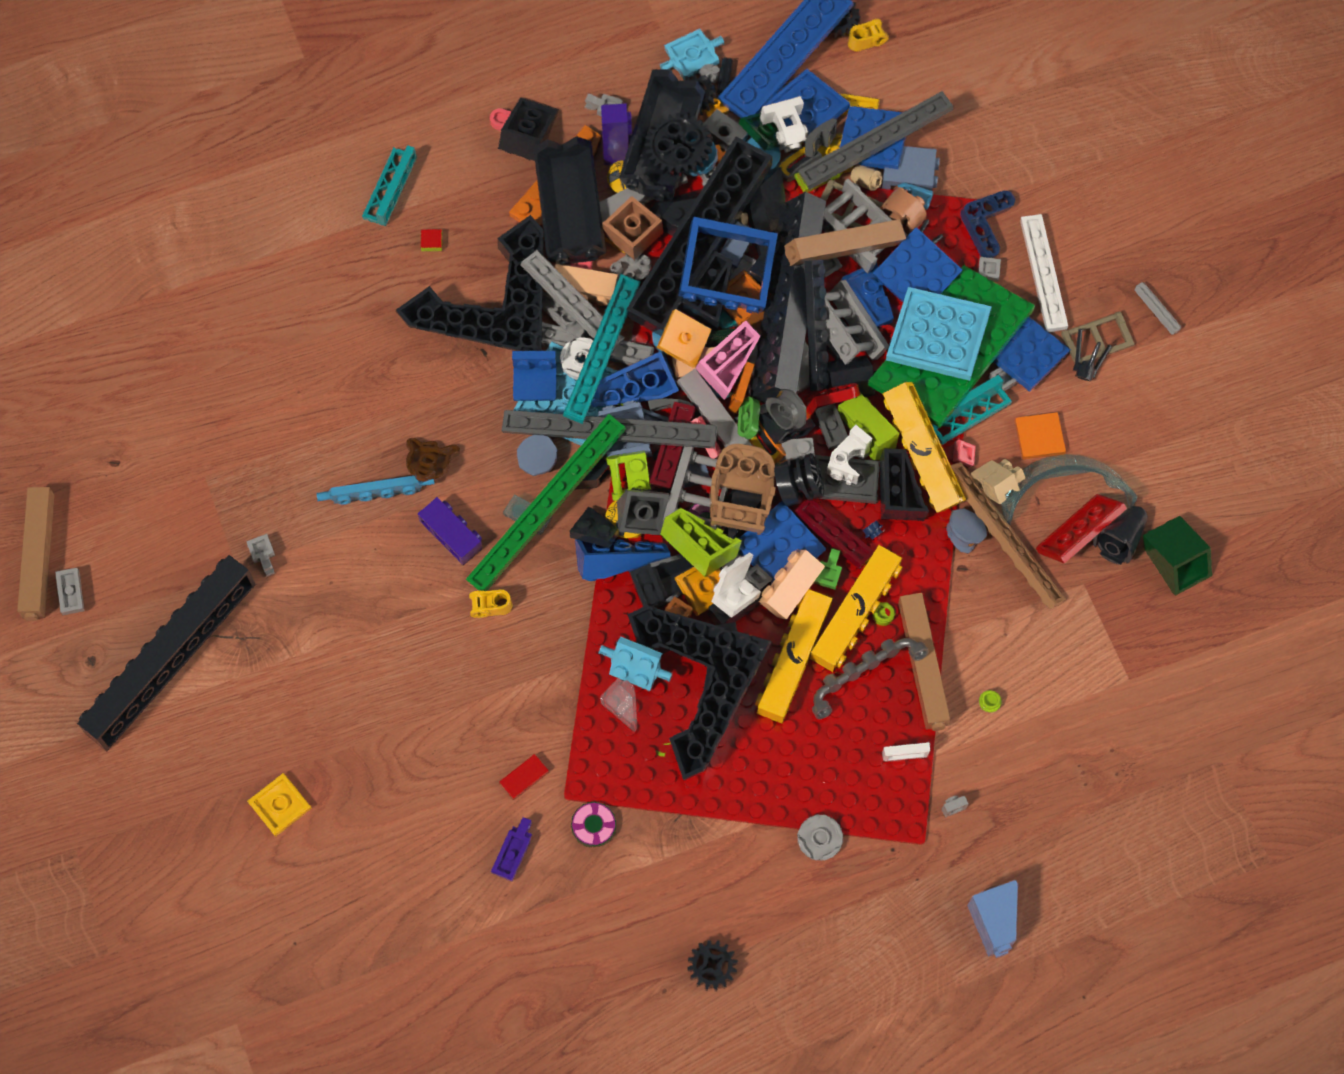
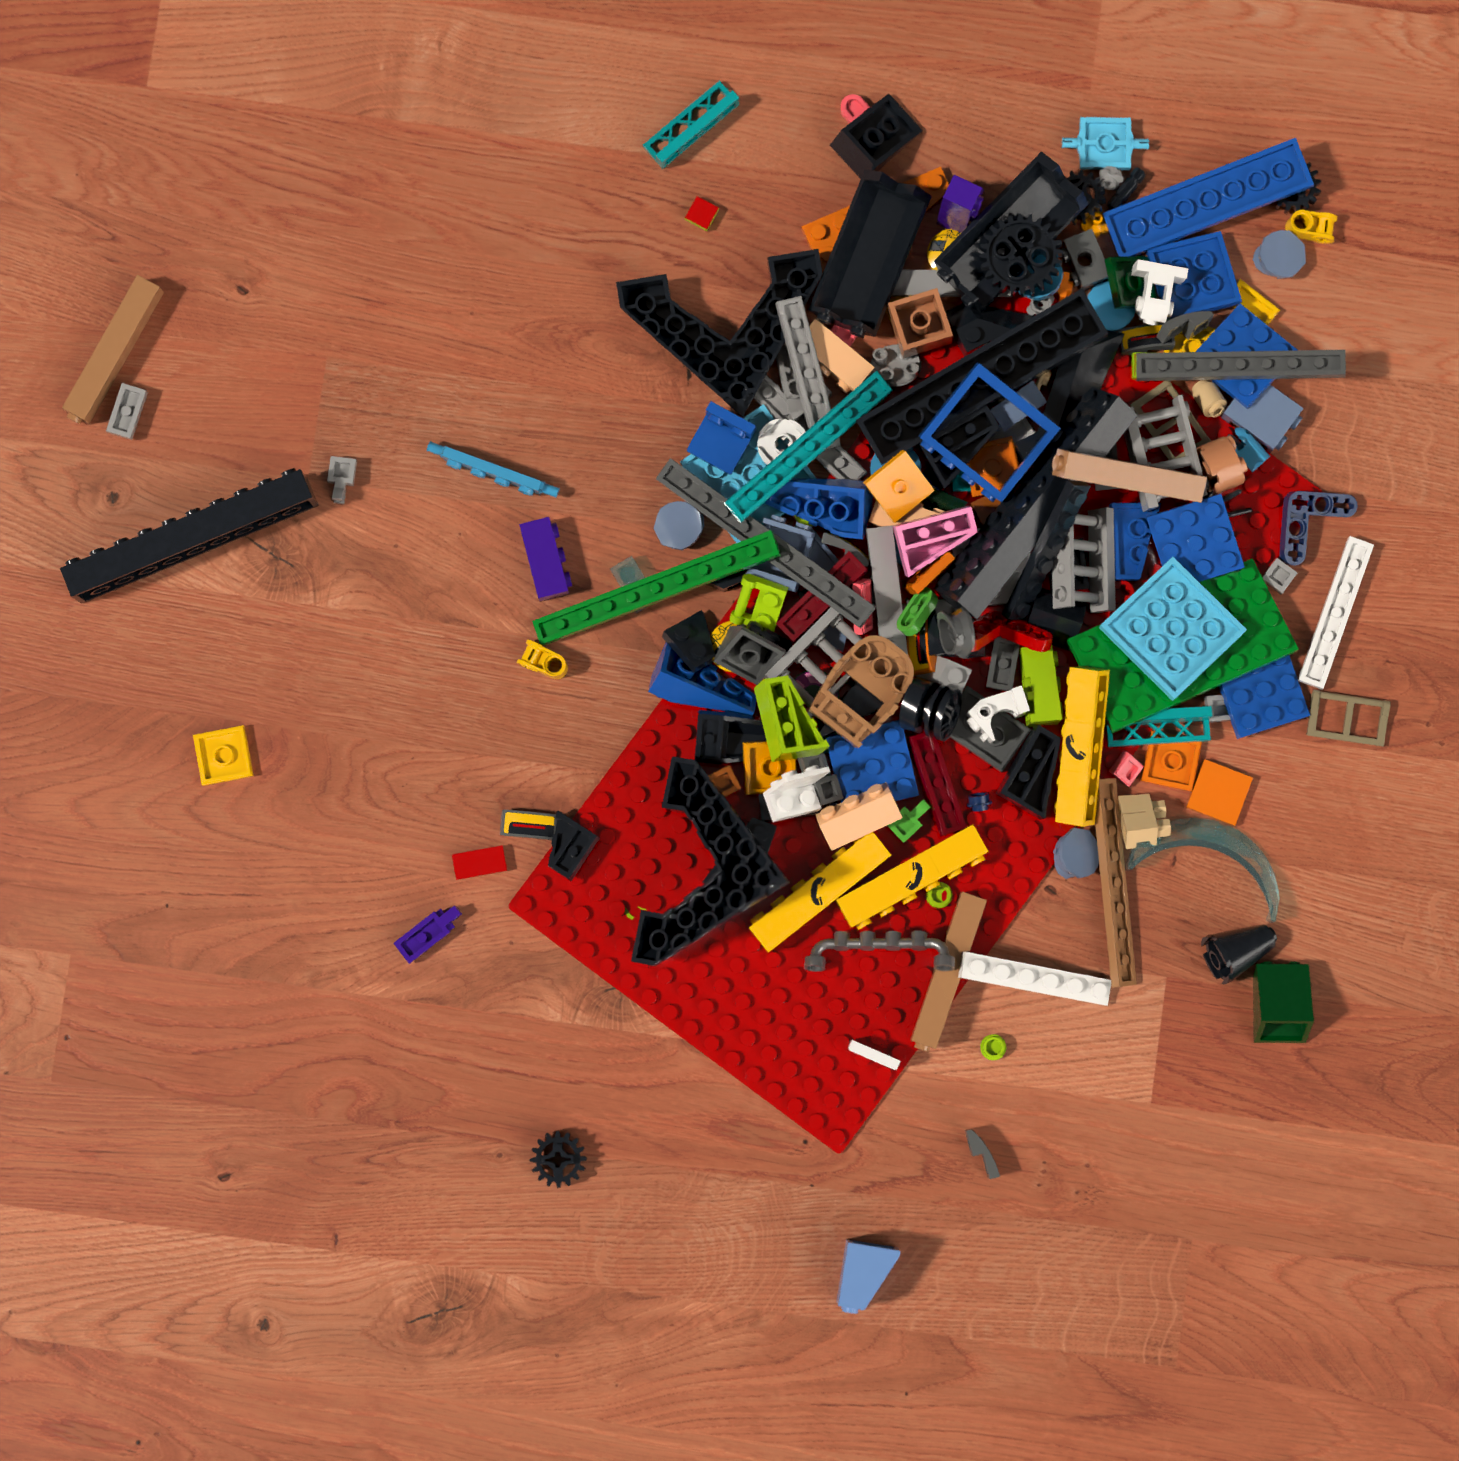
camera: 30 degrees right, 15 degrees up
(427, 460) = (562, 469): reddish brown tile -> none
(546, 727) = (527, 824): none -> slope
(587, 724) = (570, 846): none -> black wing
(593, 824) = (521, 950): tile -> none
(594, 102) = (976, 157): light grey plate -> none
(621, 701) = (617, 843): clear slope -> none
(635, 663) = (651, 812): medium azure plate -> none
(820, 837) = (738, 1091): light grey tile -> none
(857, 64) = (1280, 255): none -> sand blue hat
(954, 805) = (891, 1133): light grey plate -> none
(990, 632) = (1034, 978): none -> white plate
(994, 435) = (1171, 764): none -> orange tile
(1023, 778) = (978, 1147): none -> dark grey slope
(1080, 528) = (1196, 920): red tile -> none
(1086, 370) = (1313, 748): black plant -> none
(1157, 308) = (1434, 719): light grey axle -> none

